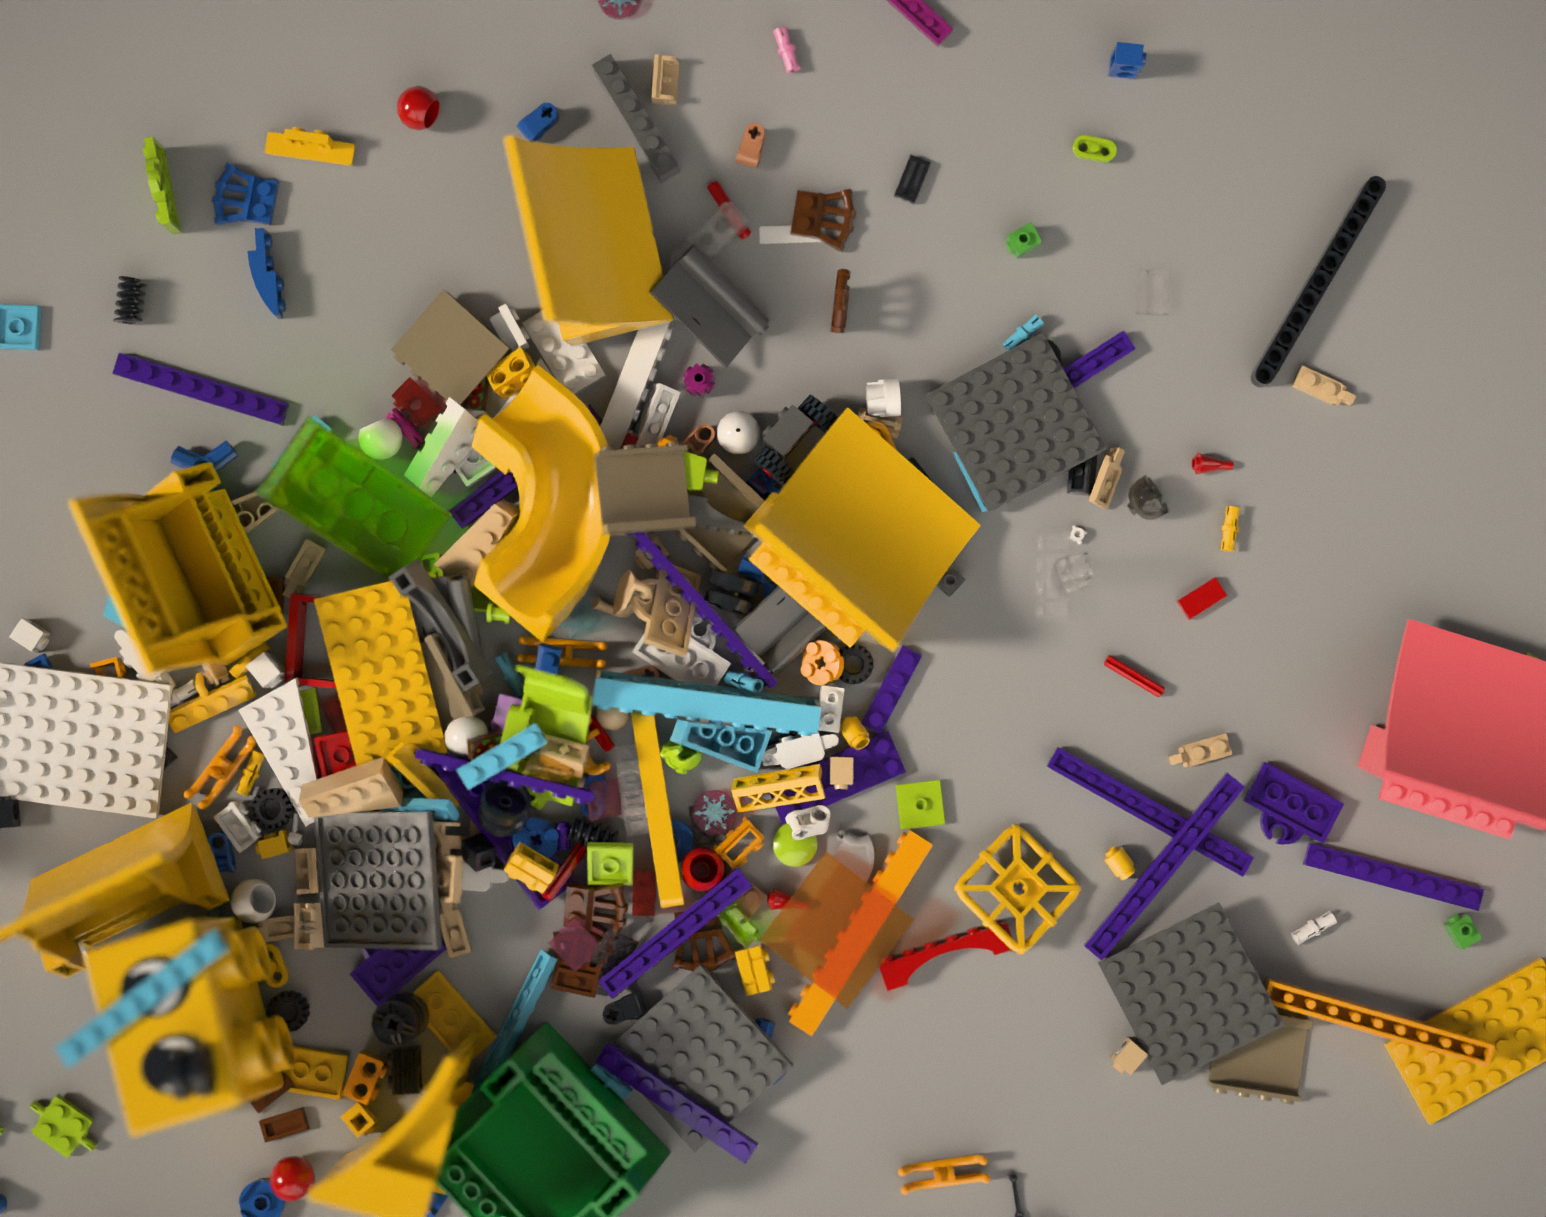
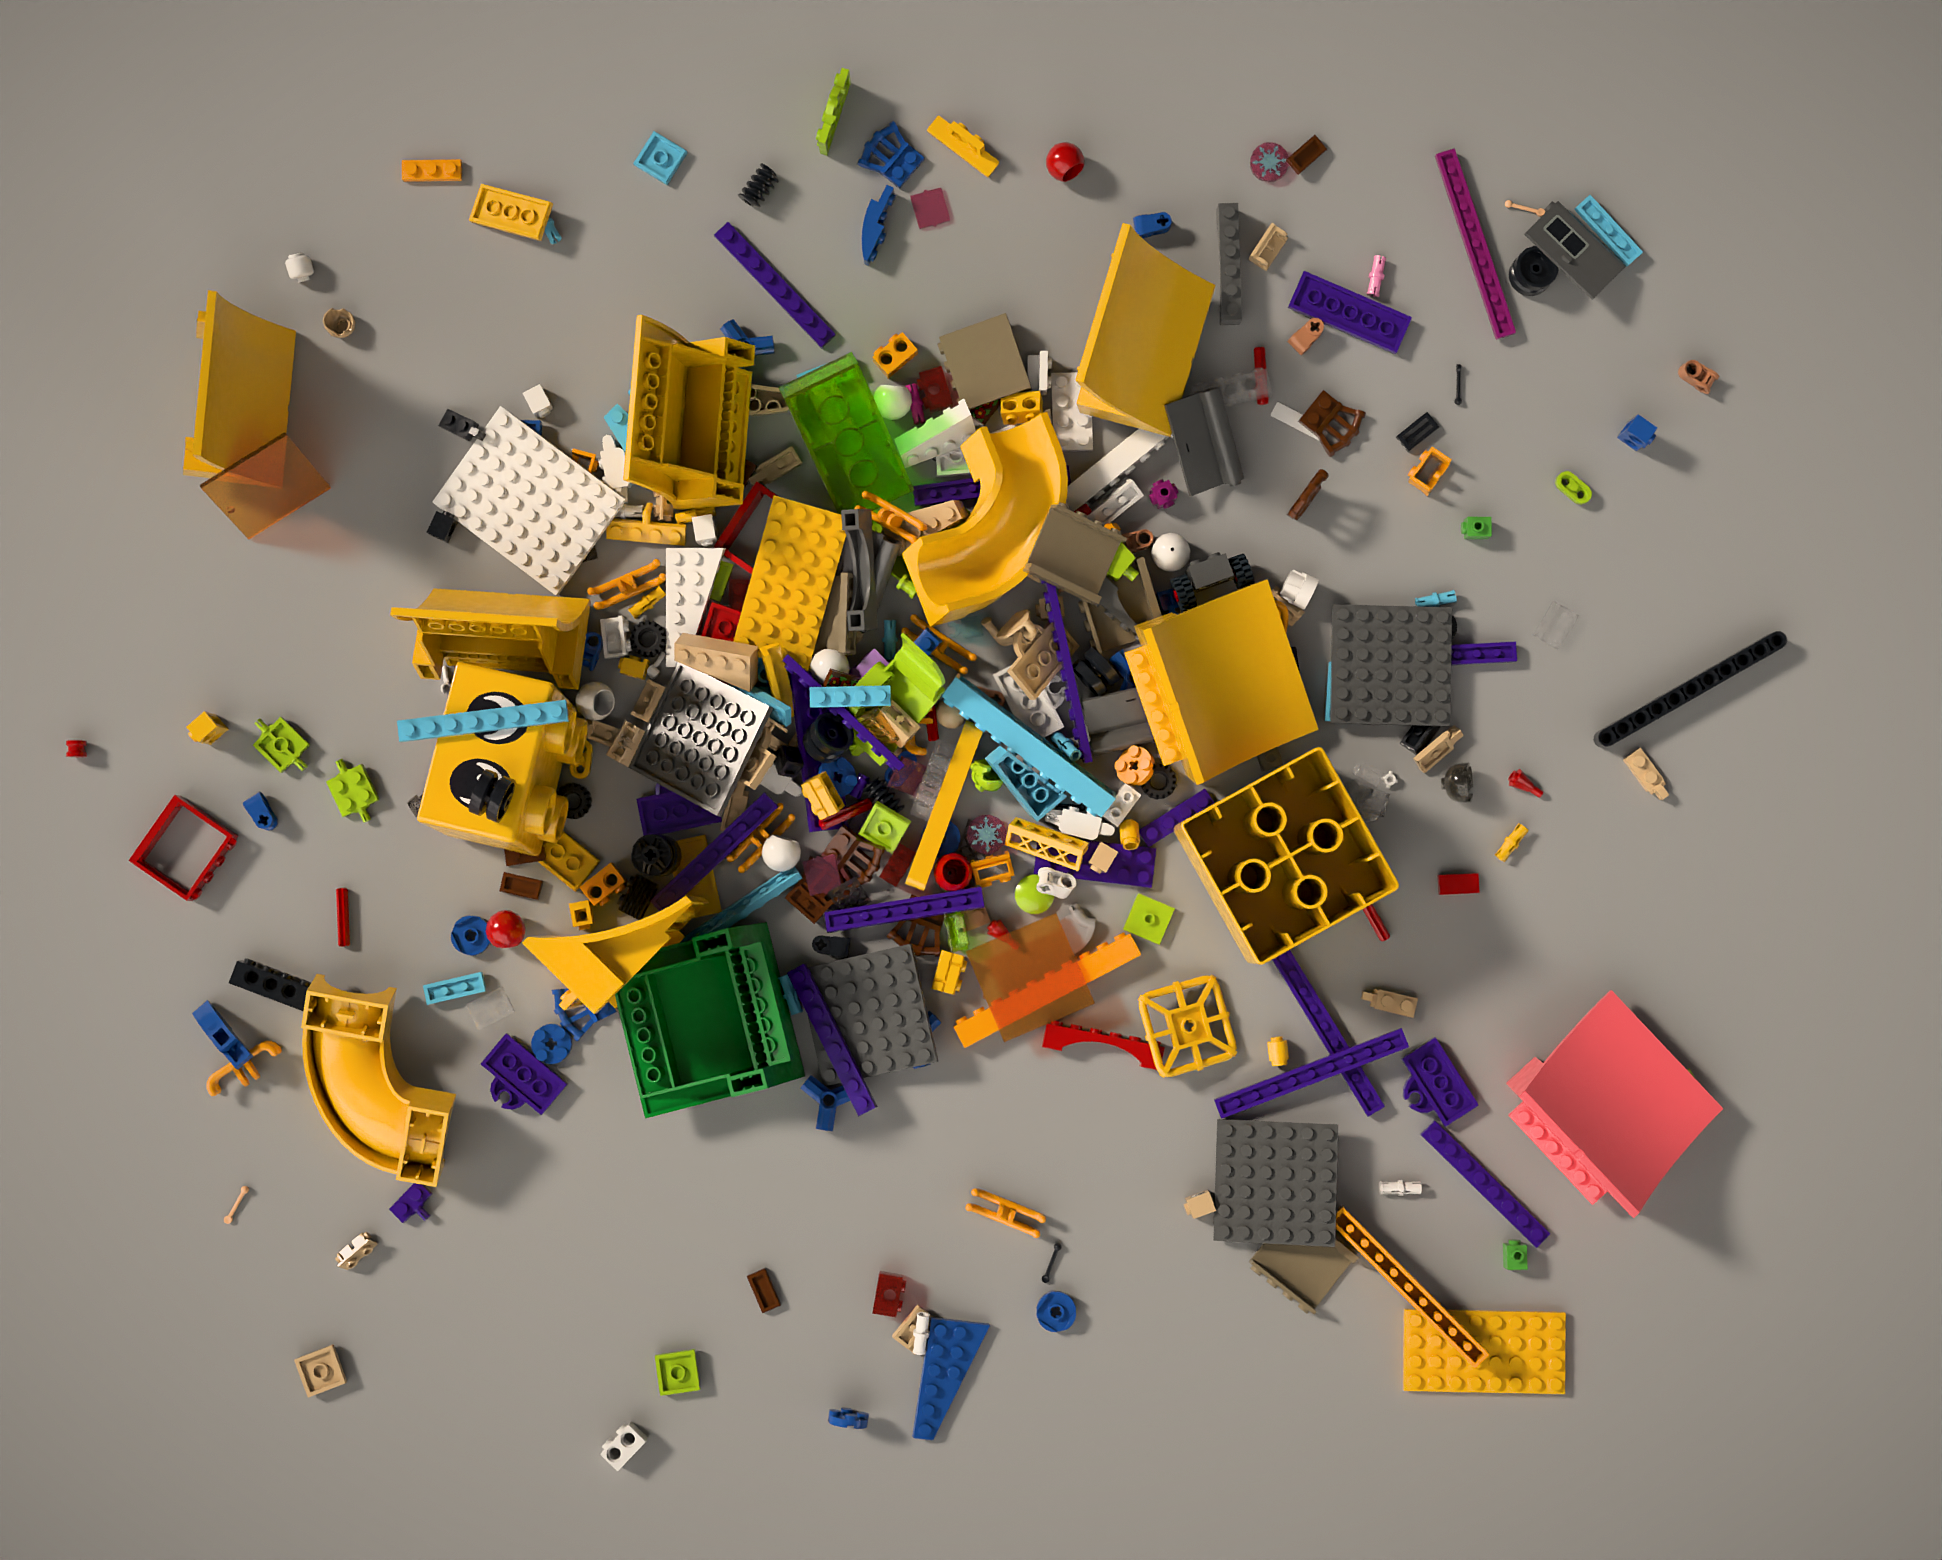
camera: 30 degrees right, 0 degrees up
(311, 227) = (930, 208): none -> clear pink piece
(364, 392) = (898, 358): none -> light orange brick
(444, 553) = (892, 517): none -> light orange piece
(457, 984) = (715, 852): none -> dark purple plate
(495, 943) = (758, 837): none -> light orange piece
(522, 946) = (781, 853): none -> white helmet
(712, 1177) = (817, 1091): none -> blue piece
(780, 99) = (1349, 312): none -> dark purple plate
(934, 126) = (1458, 400): none -> black hinge
(945, 210) = (1429, 471): none -> light orange window
(1021, 671) = (1286, 857): none -> yellow piece

